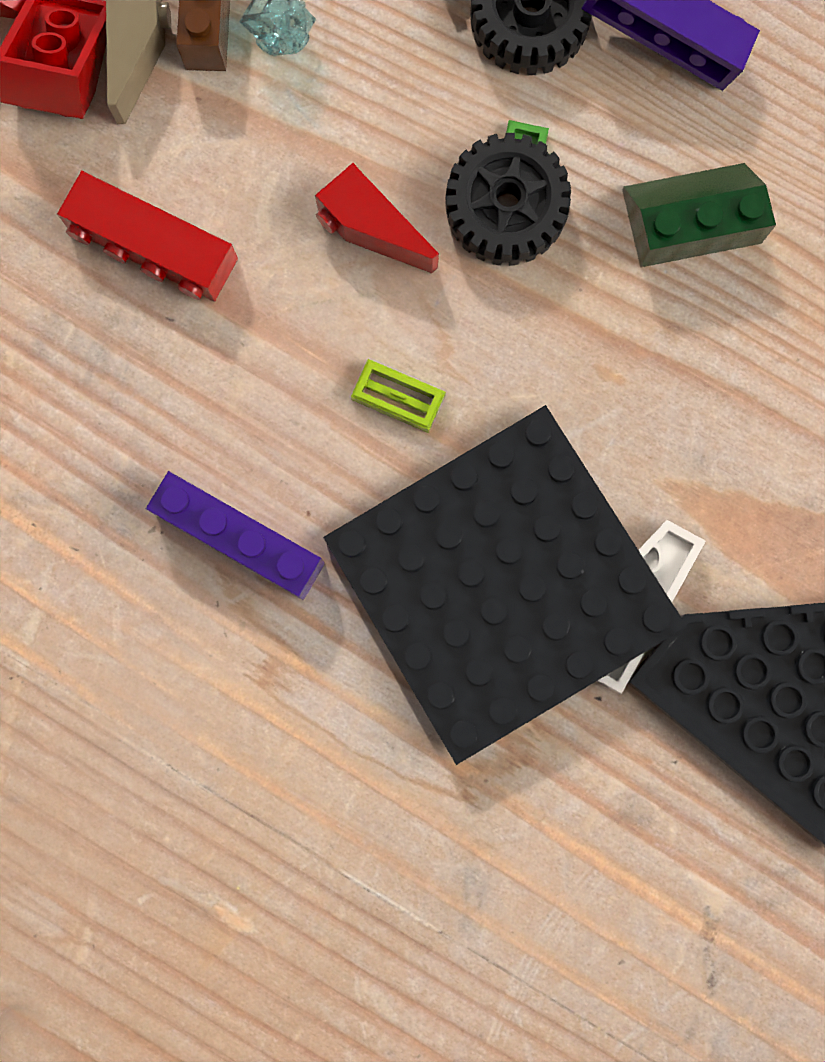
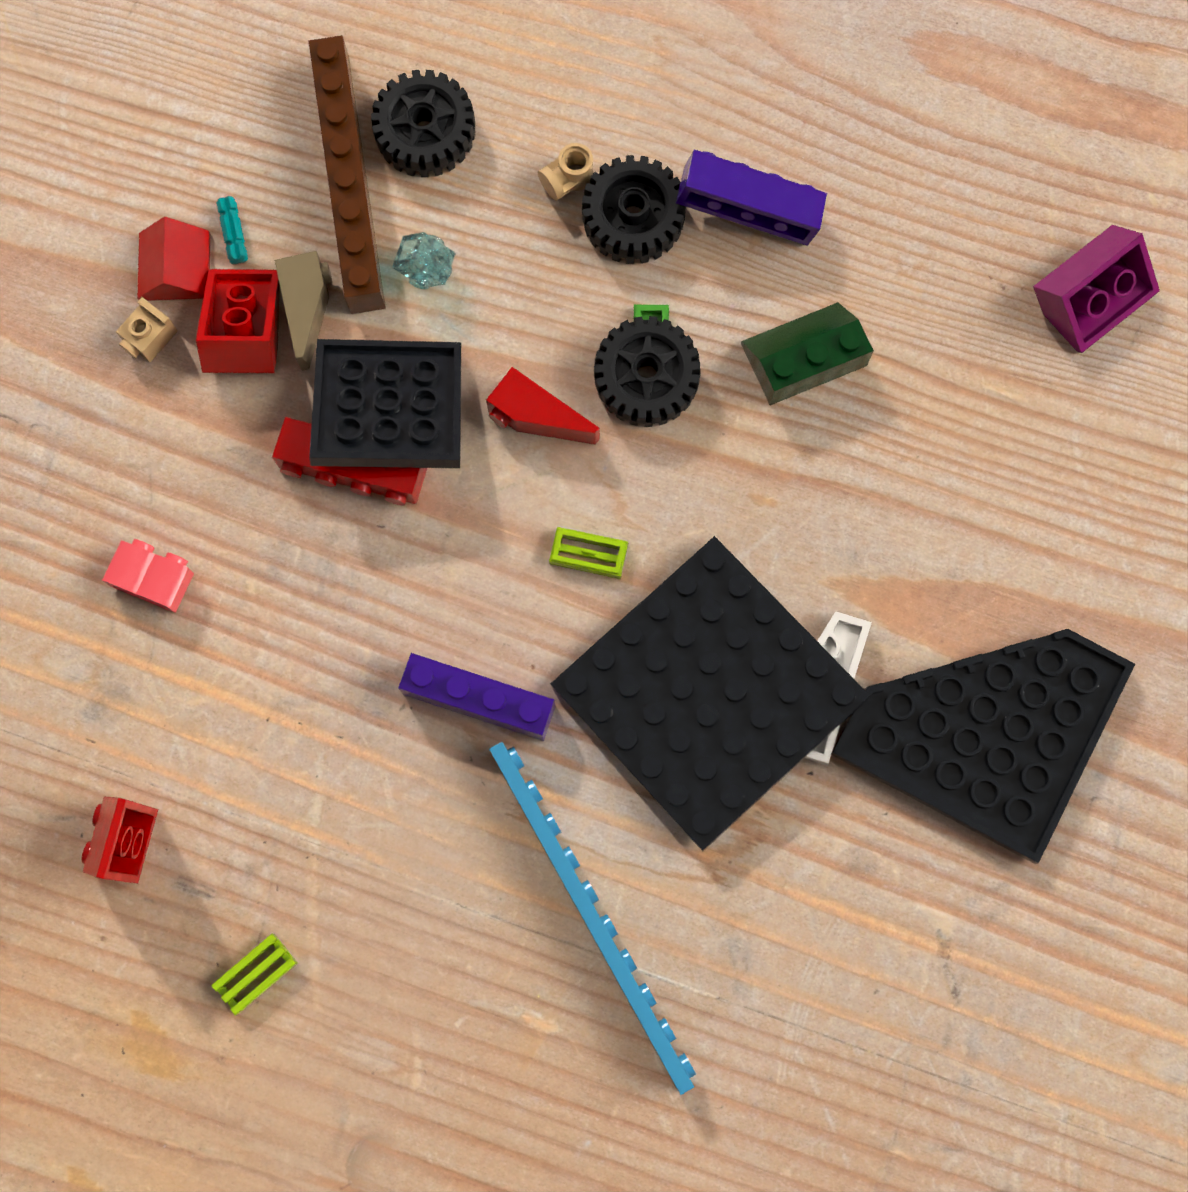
camera: 10 degrees left, 5 degrees down
(199, 178) = (386, 404): none -> black plate
(321, 828) = (600, 927): none -> dark azure plate

